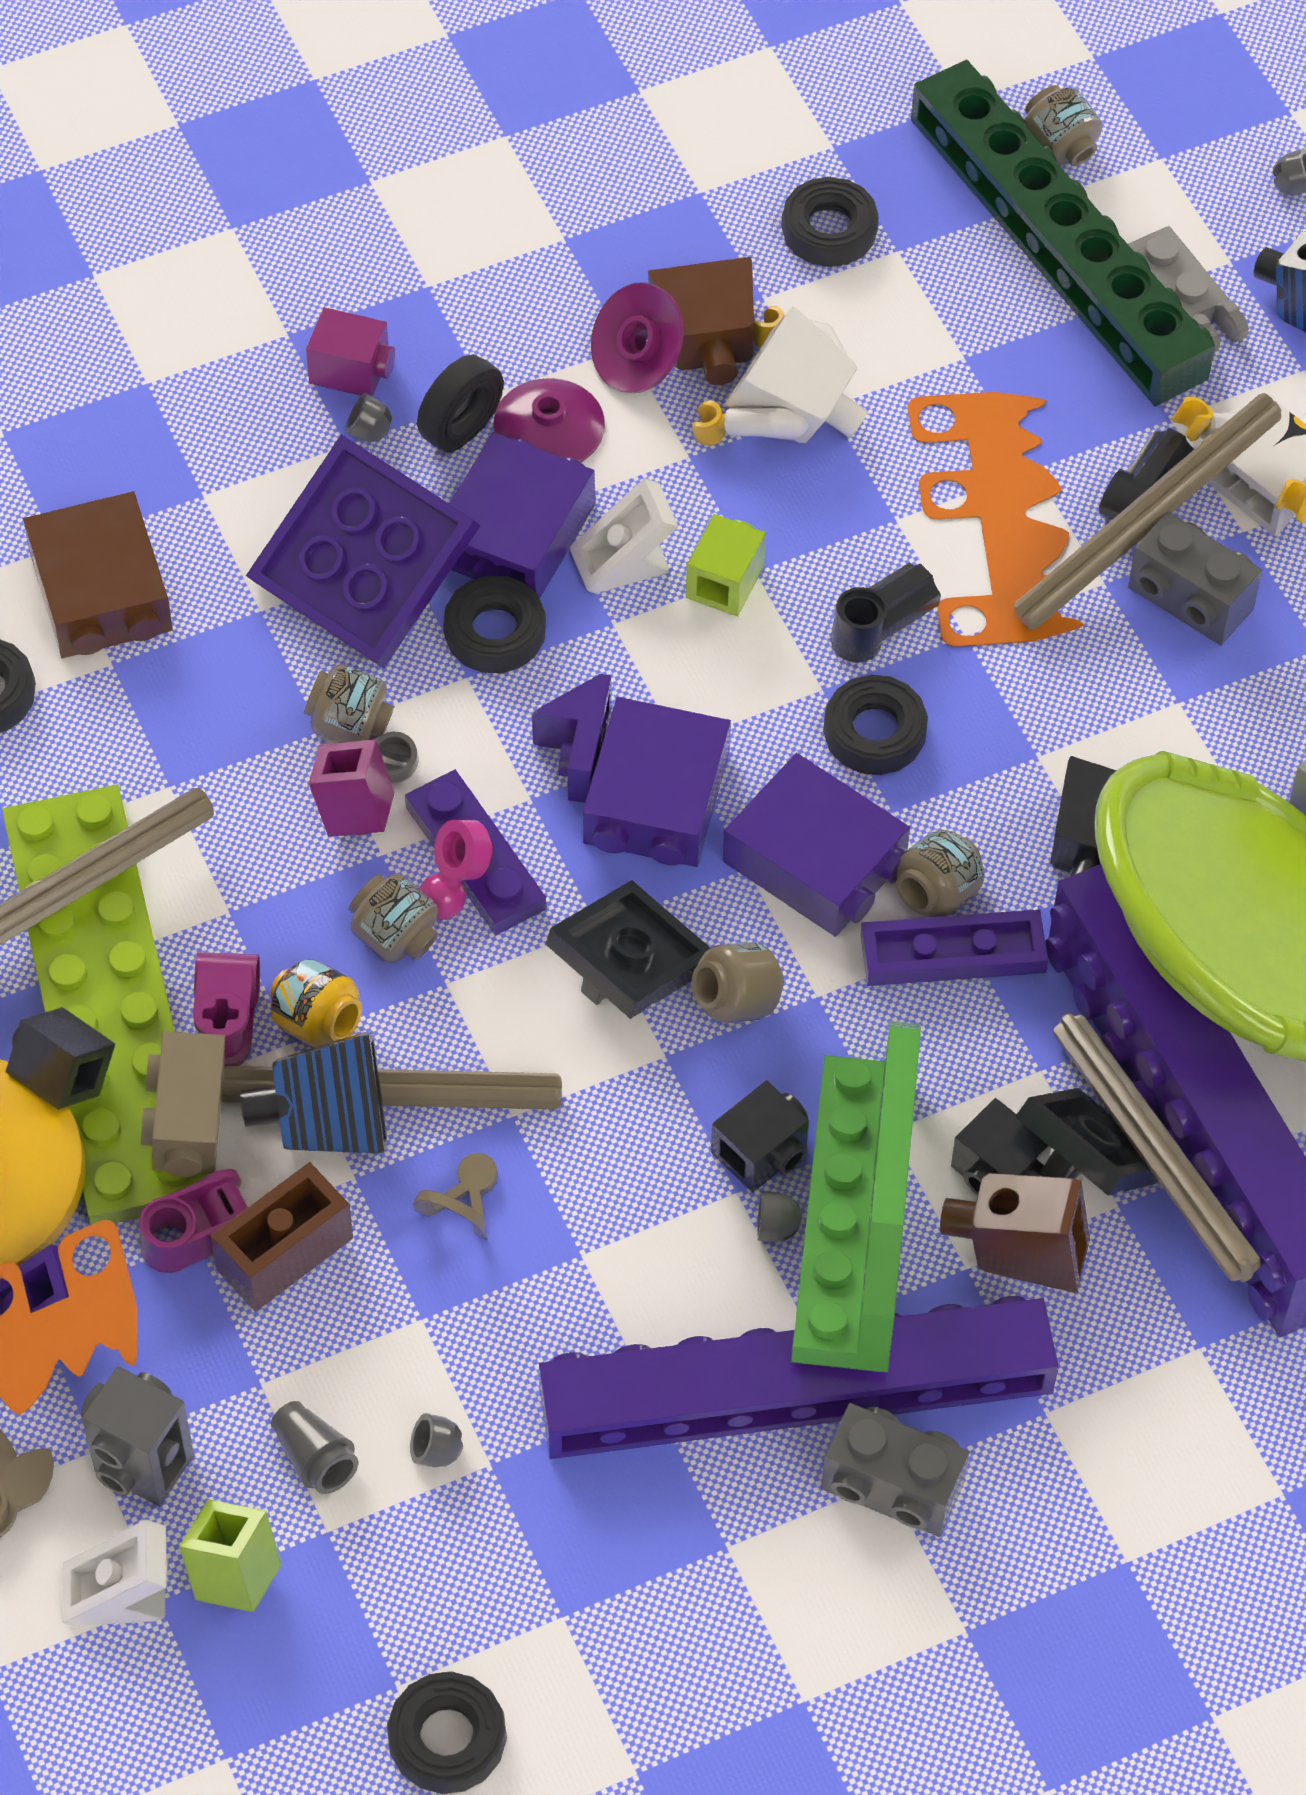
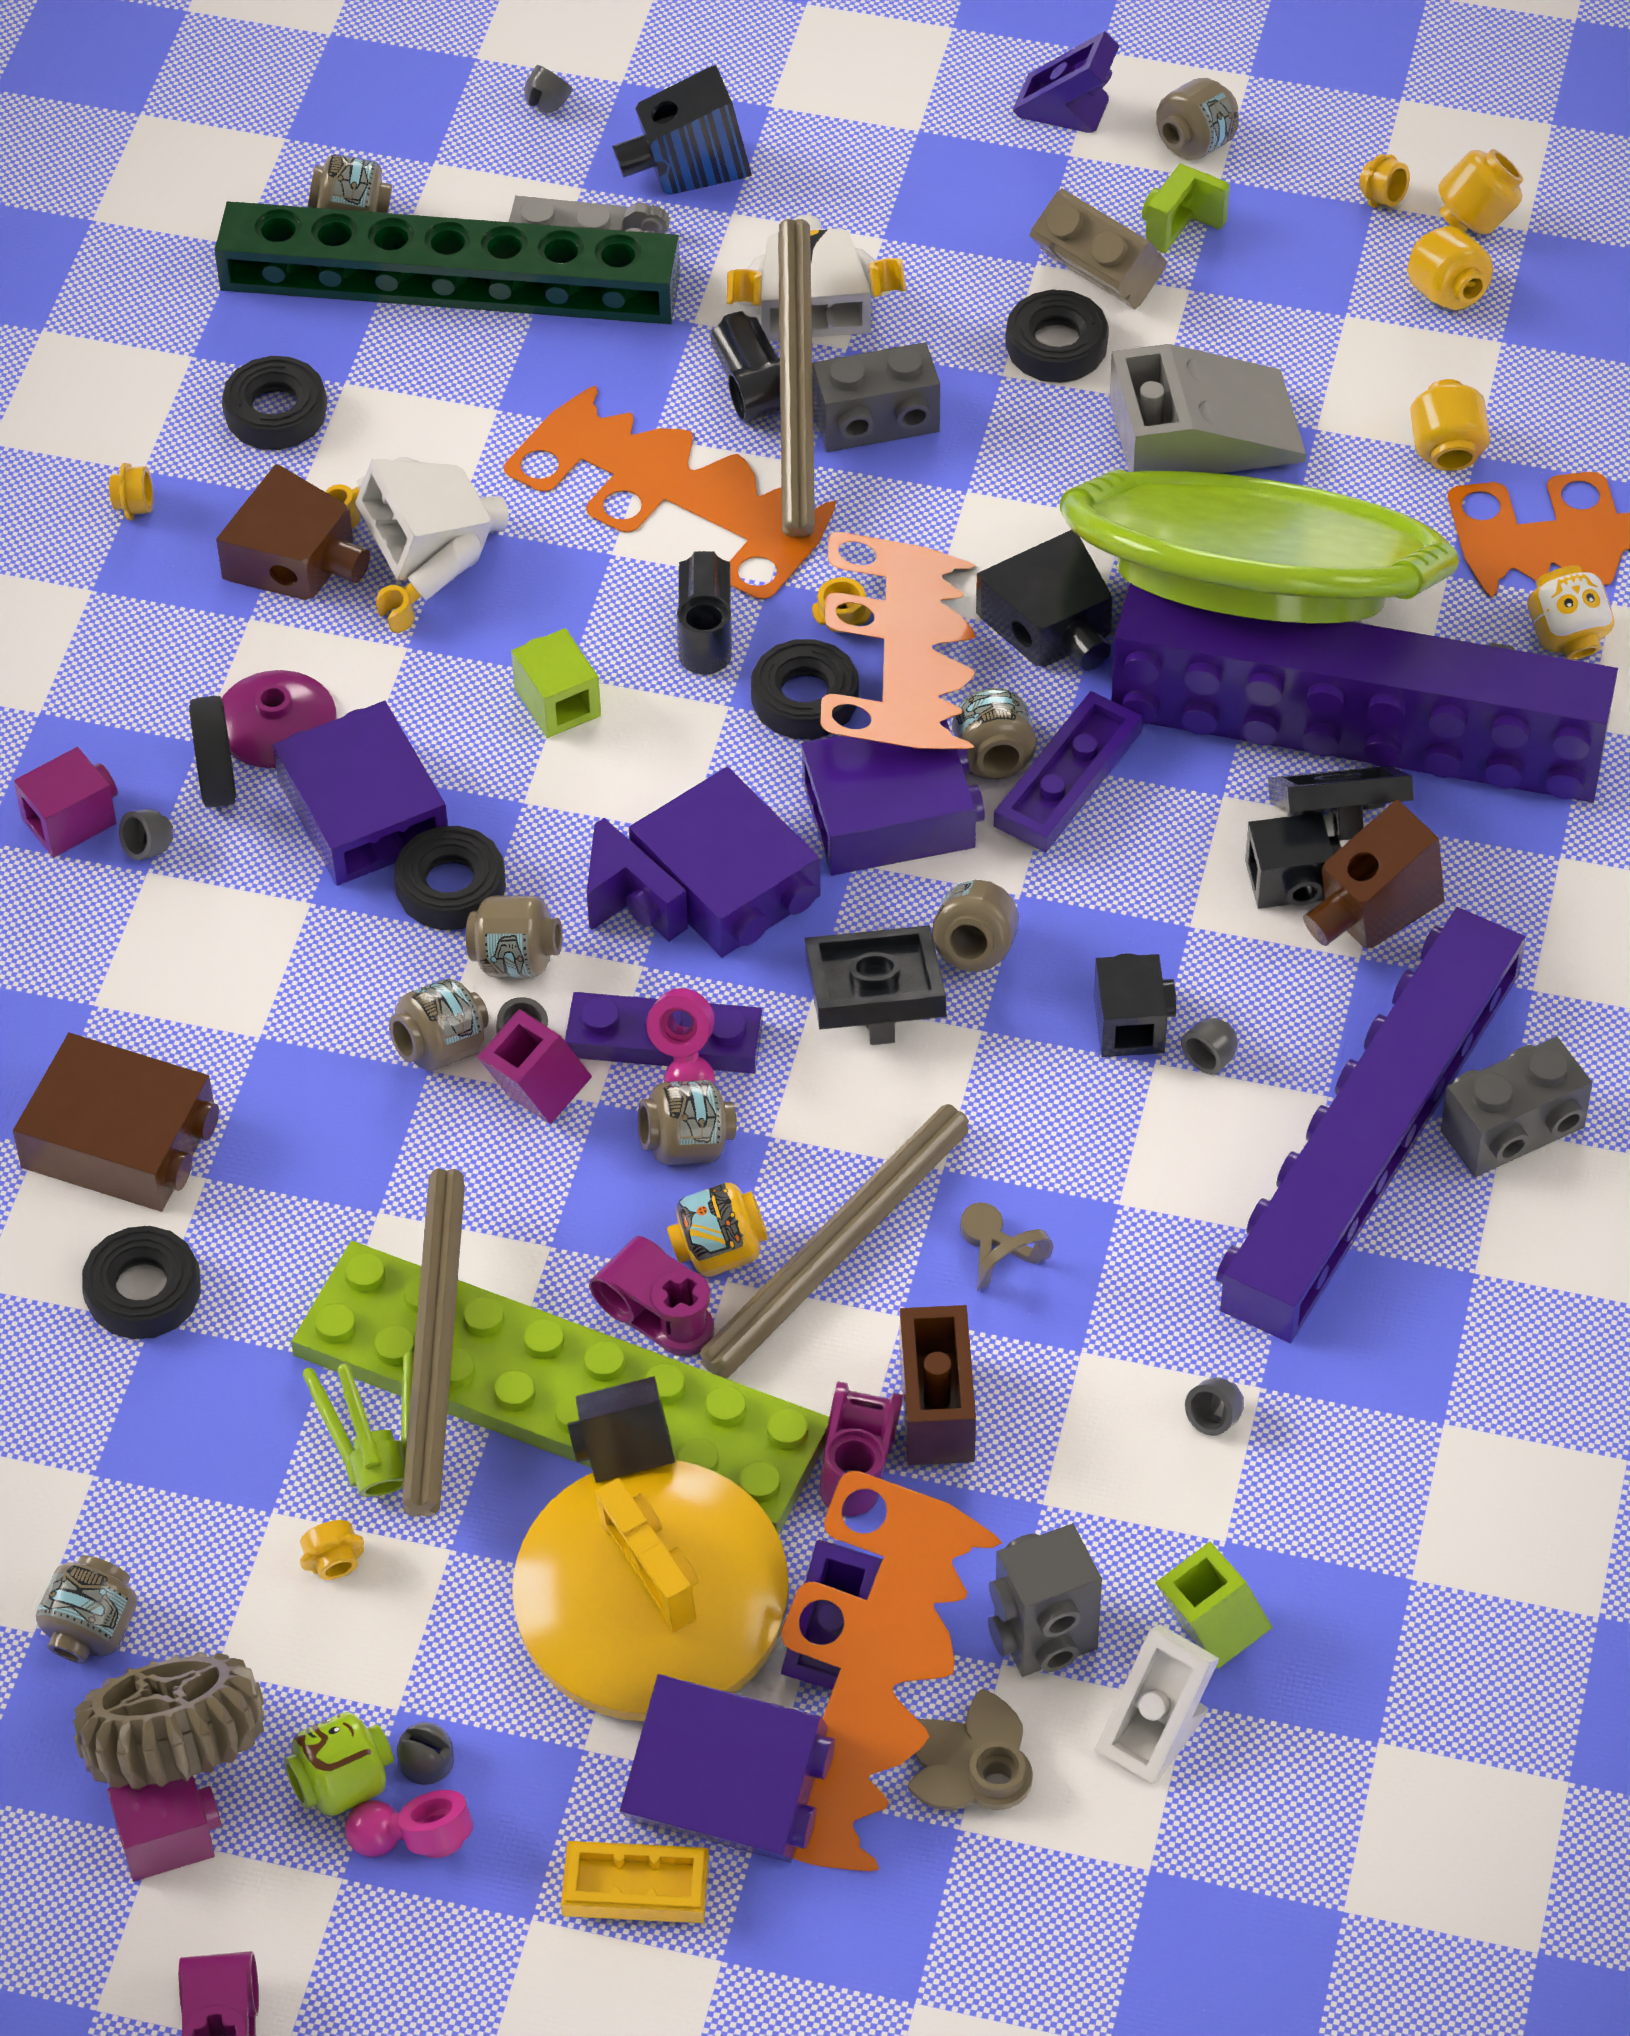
camera: 50 degrees left, 5 degrees down
(188, 1103) = (751, 1367): dark tan brick -> none
(315, 1448) = (1148, 1493): dark grey cone -> none
(324, 1098) = (829, 1269): torso -> none
(363, 551) = (299, 910): dark purple plate -> none
(455, 1771) = (1482, 1599): black tyre -> none
(466, 696) = (513, 936): none -> dark tan head
(621, 337) = (240, 597): magenta dish -> none
(626, 540) = (465, 728): white slope -> none
(665, 197) = (131, 490): none -> yellow plate
(840, 1201) = (1255, 989): bright green plate -> none
(946, 776) = (910, 624): none -> piece
(976, 682) = (850, 613): none -> yellow plate
(1157, 1148) = (1383, 751): dark tan axle -> none

